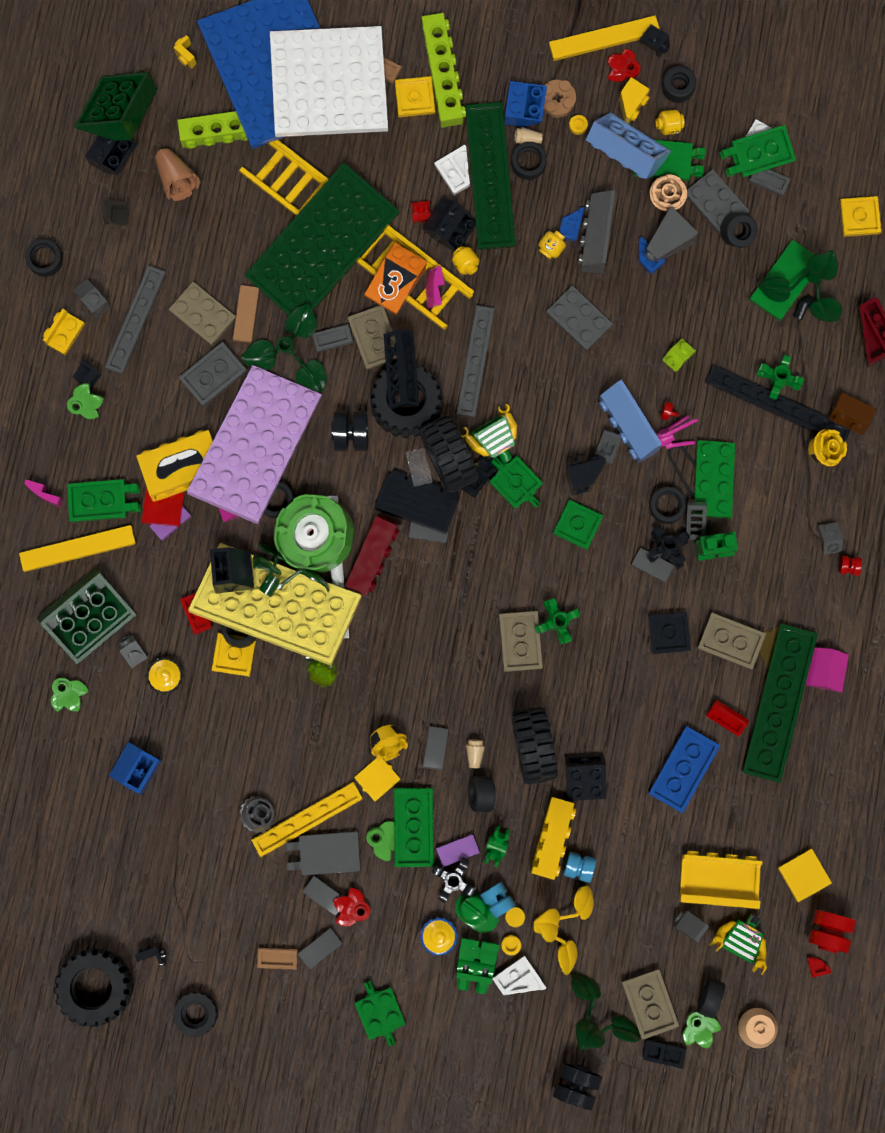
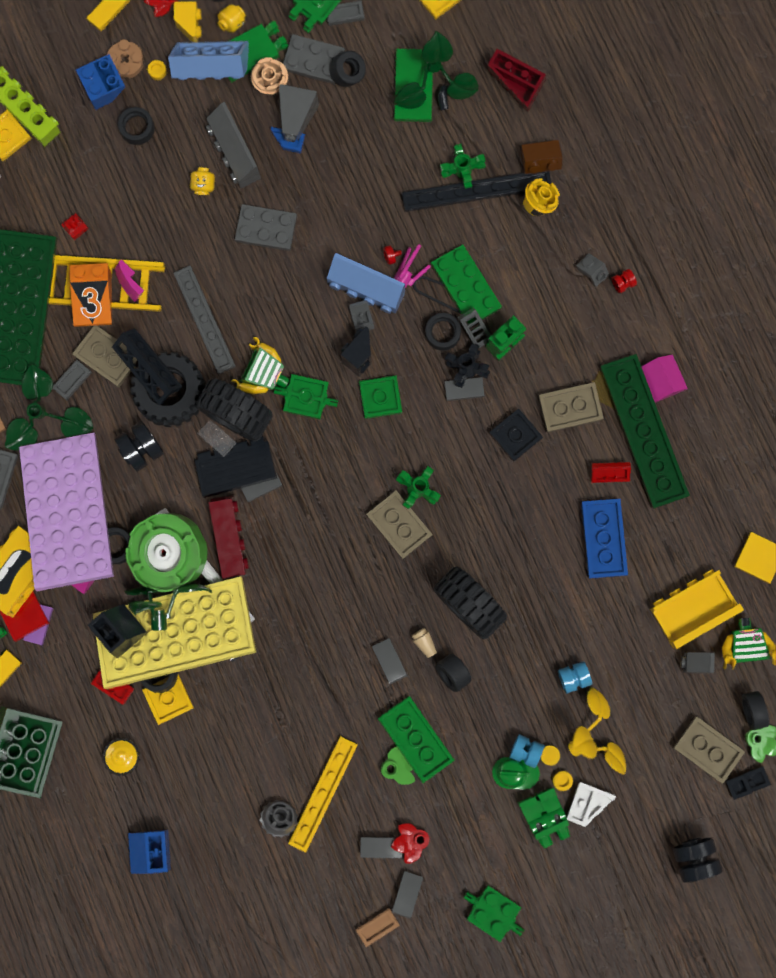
camera: 30 degrees left, 0 degrees up
(70, 696) = (52, 829): bright green plate -> none
(131, 651) = (79, 755): dark grey bracket -> none
(322, 674) = (253, 664): clear neon green head -> none
(326, 853) = (358, 811): dark grey tile -> none
(377, 778) = (358, 719): yellow piece -> none
(387, 742) = (346, 683): yellow cone -> none
(438, 936) = (499, 815): yellow piece -> none
(449, 224) = (106, 221): black slope -> none
(454, 170) = (79, 173): white wing -> none
(456, 850) = (465, 733): medium lavender tile -> none
(462, 885) = (479, 768): black pin -> none
(465, 260) = (139, 242): yellow head -> none
(485, 470) = (274, 403): black slope -> none
(490, 176) = (112, 159): dark green plate -> none
(497, 846) = (496, 707): green pin -> none
(527, 135) = (117, 107): tan cone -> none
(552, 838) = (536, 669): yellow wedge -> none
(571, 224) = (207, 156): blue tile -> none
(586, 777) = (529, 599): black bracket -> none
(588, 1033) = (677, 811): dark green plant -> none
(678, 355) = (368, 203): lime bracket -> none

